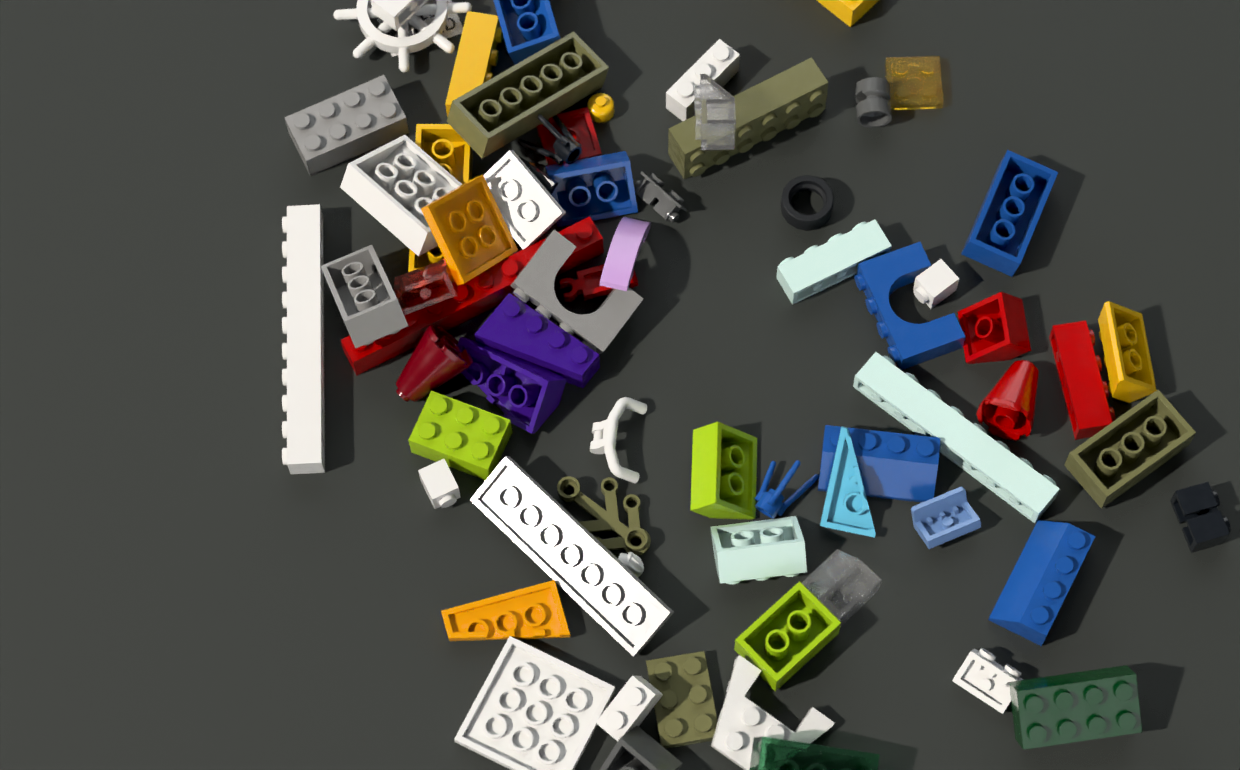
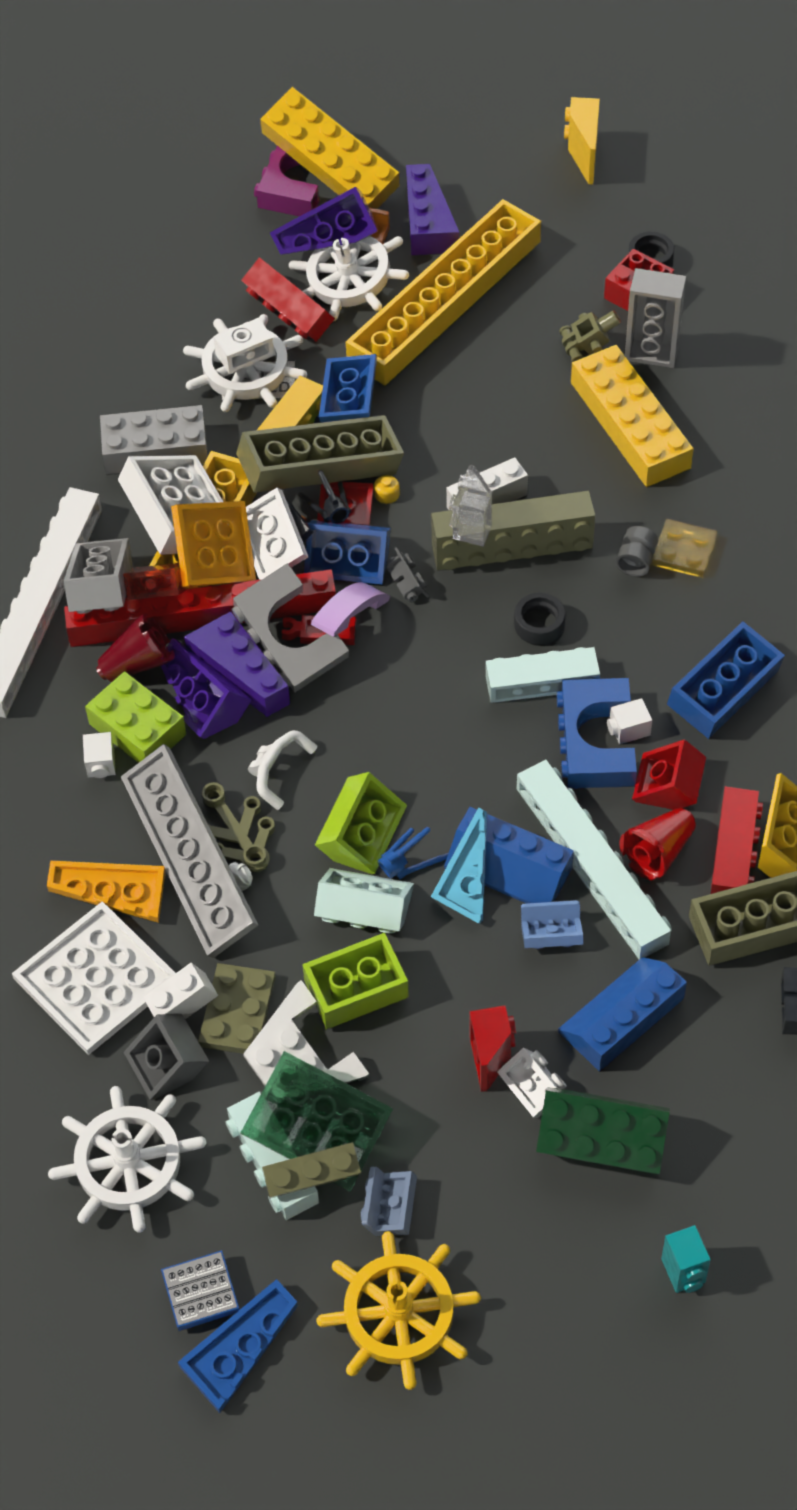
camera: 20 degrees right, 10 degrees down
(843, 584) = (428, 956): clear slope -> none
(937, 657) = (491, 1042): none -> red slope

